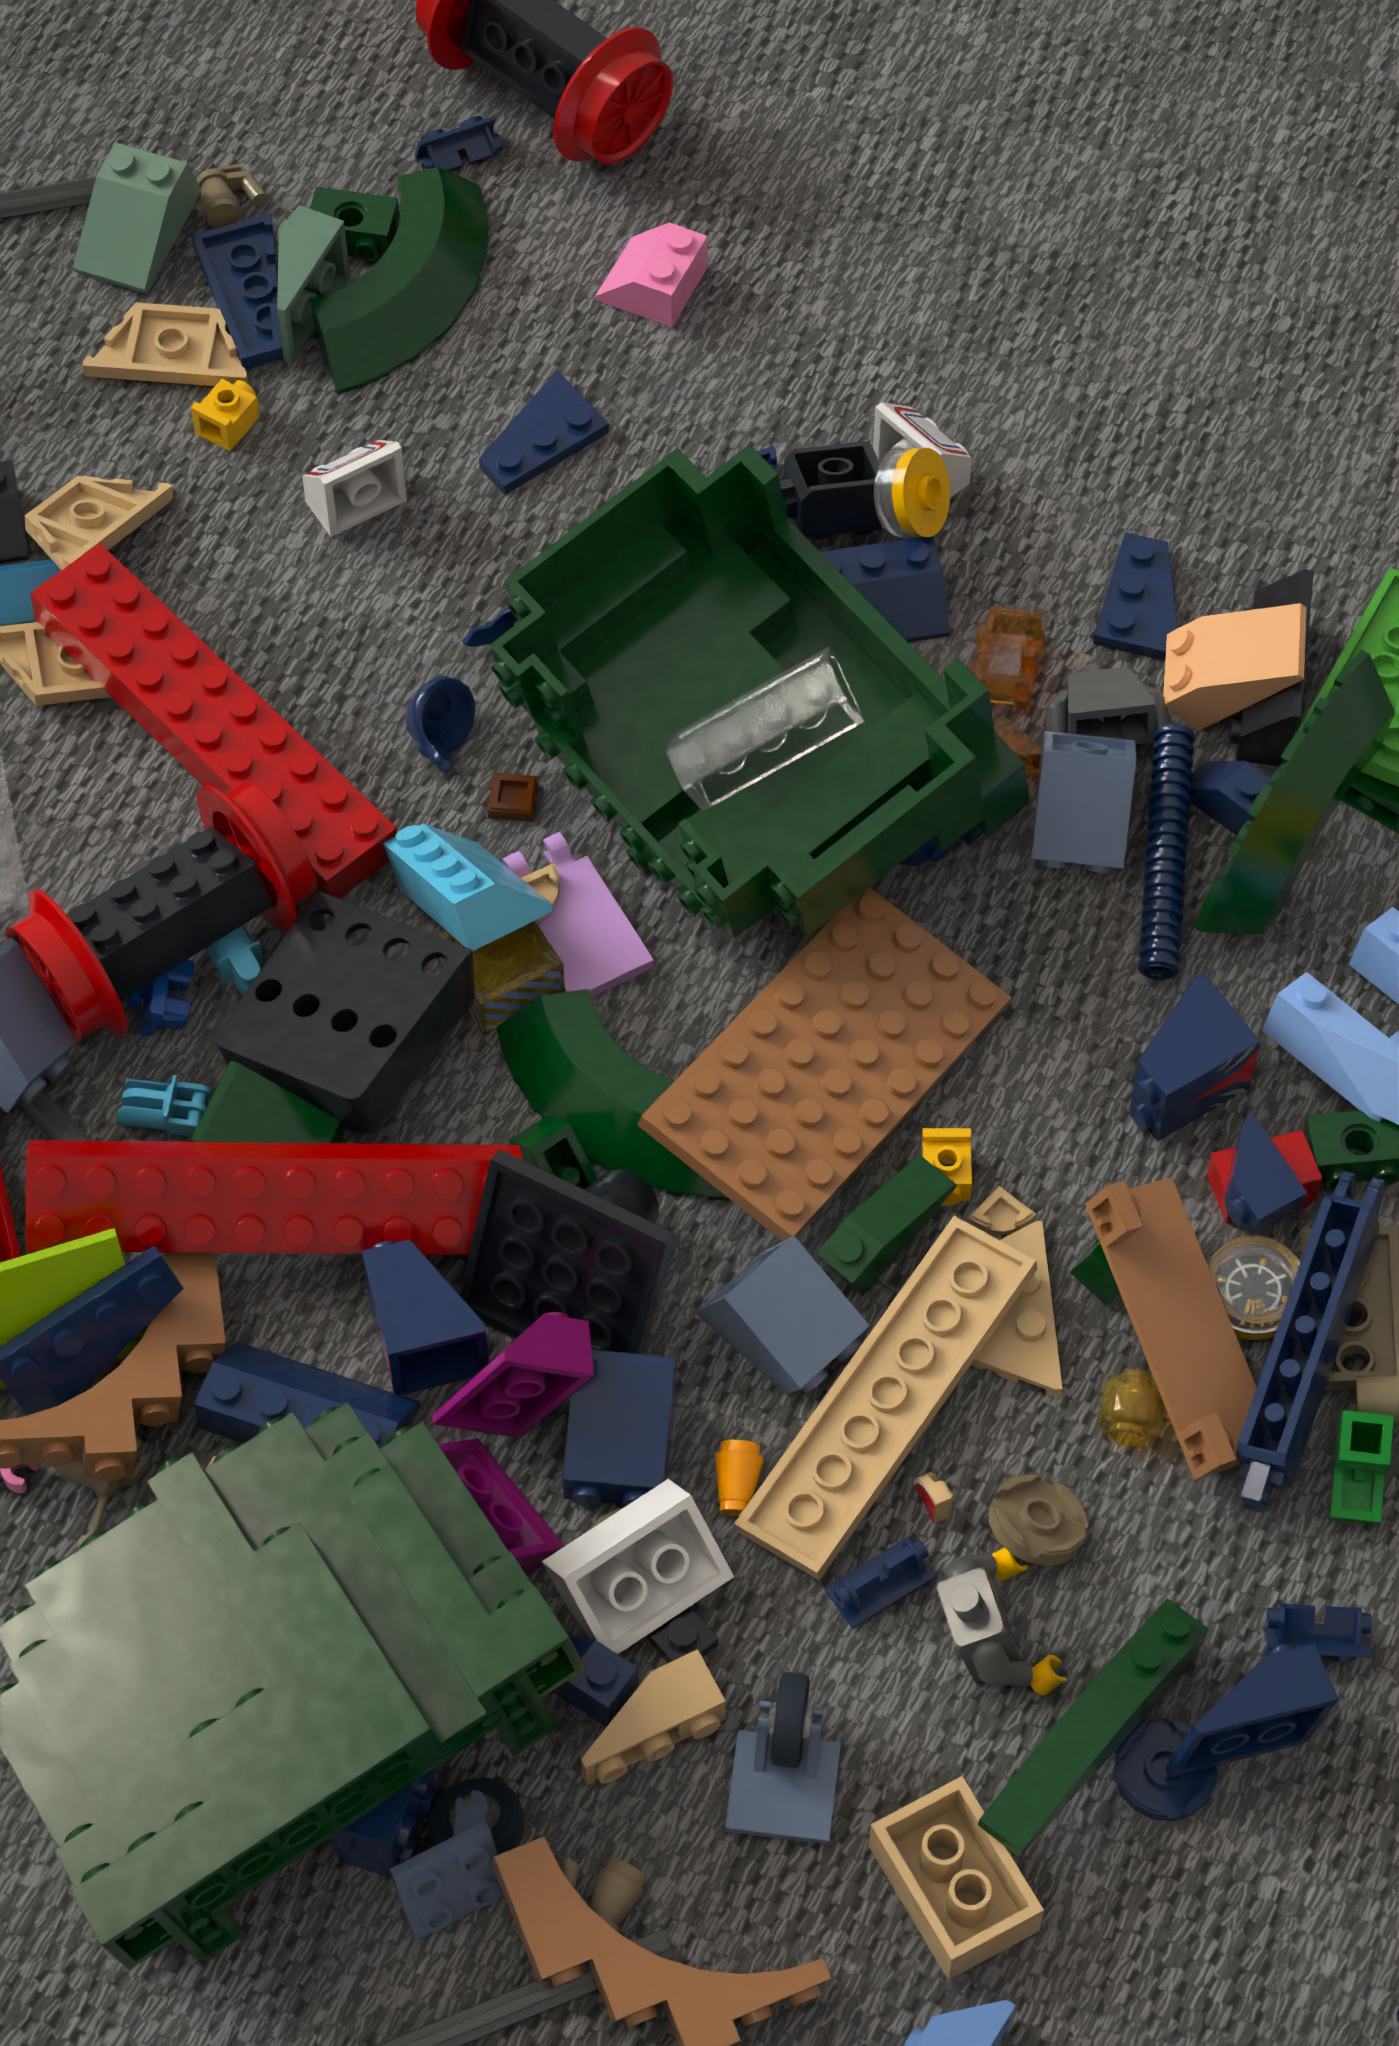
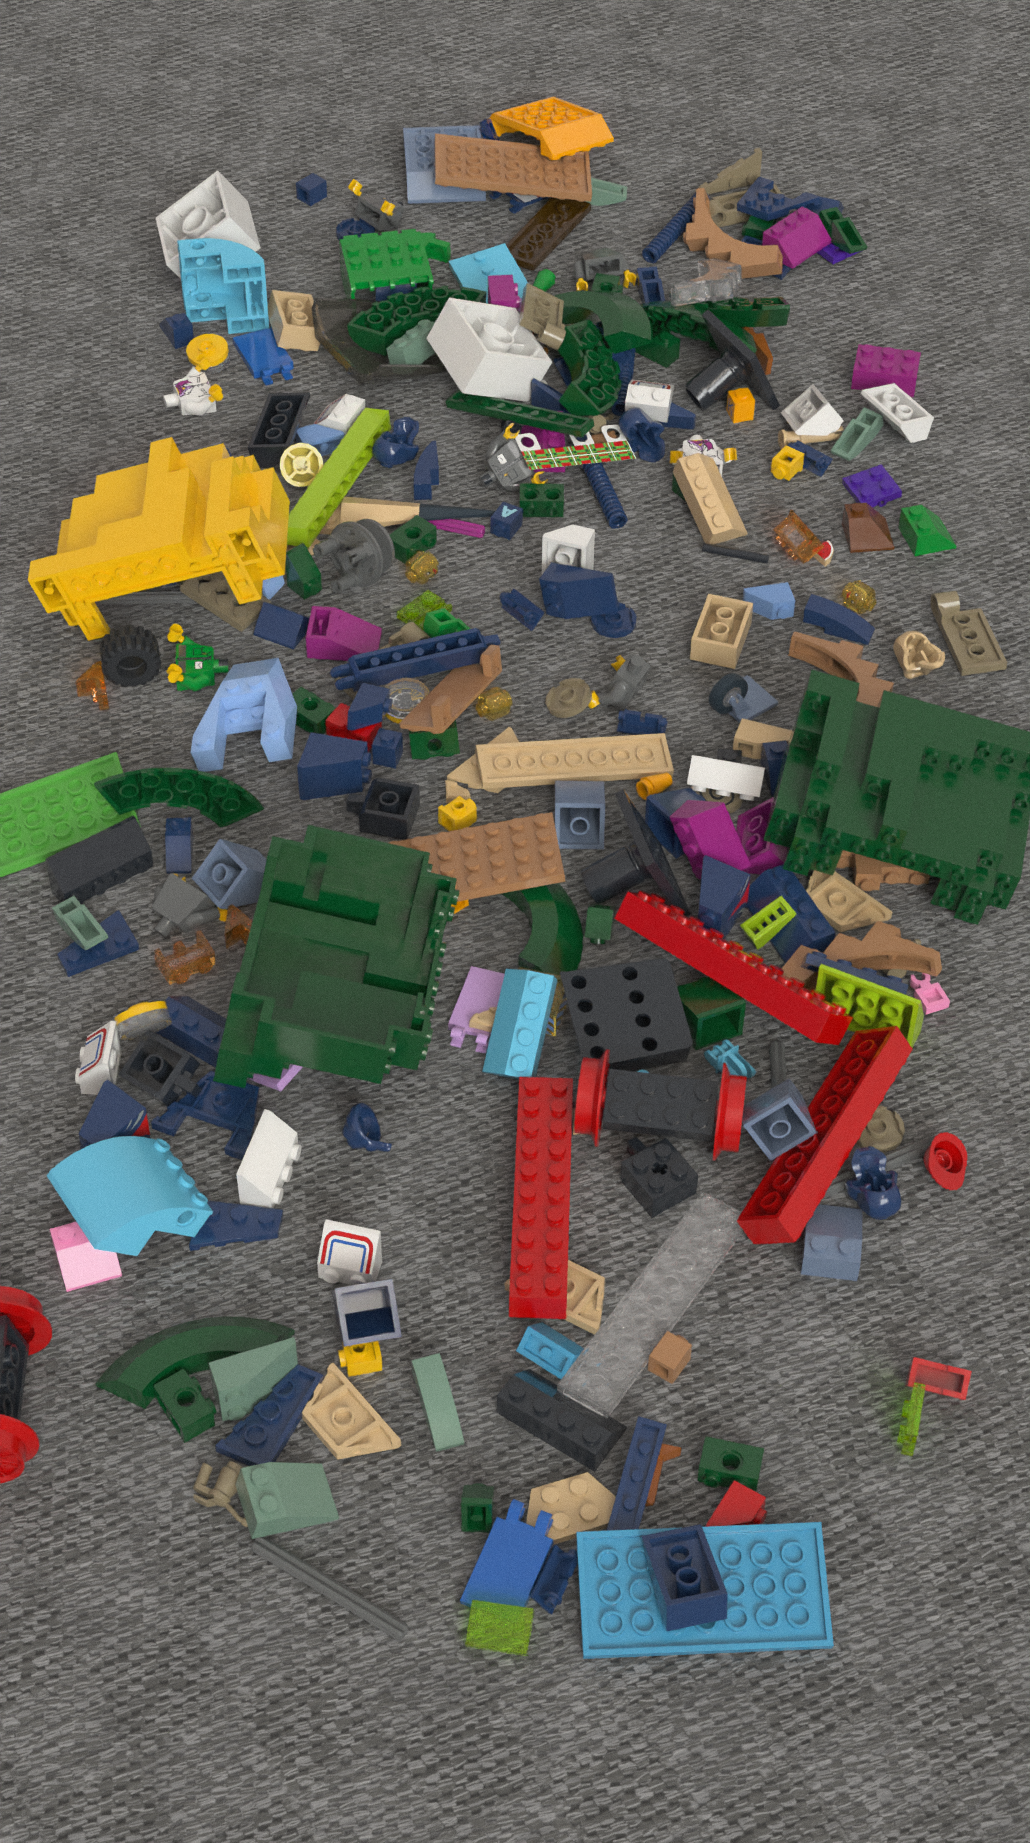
camera: 135 degrees left, 10 degrees down
(90, 432) = (437, 1402): none -> sand green slope
(91, 513) = (487, 1347): tan wing -> none
(92, 855) = (657, 1175): none -> black hinge
(260, 427) = (366, 1312): none -> slope
(318, 1353) = (767, 933): none -> lime slope
(437, 707) = (442, 1129): dark blue hat -> none
(472, 137) = (76, 1412): dark blue hinge -> none
(513, 797) = (445, 1076): reddish brown tile -> none
(563, 479) = (267, 1162): none -> white slope
(663, 321) = (127, 1191): none -> medium azure slope
(763, 730) = (344, 952): clear slope -> none
(796, 386) = (113, 1116): none -> dark blue slope
(885, 1224) = (507, 803): dark green slope -> none
(935, 1496) = (595, 723): tan tile -> none
(1041, 1076) = (387, 808): none -> black hinge
(1095, 1726) = (626, 625): dark green slope -> none
(1166, 852) = (245, 836): dark blue piece -> none
(1177, 1163) = (387, 748): none -> dark blue brick
(1180, 578) = (79, 923): none -> sand green slope
(1233, 661) = (115, 866): light nougat slope -> none
(1325, 1761) = (569, 546): none -> white slope

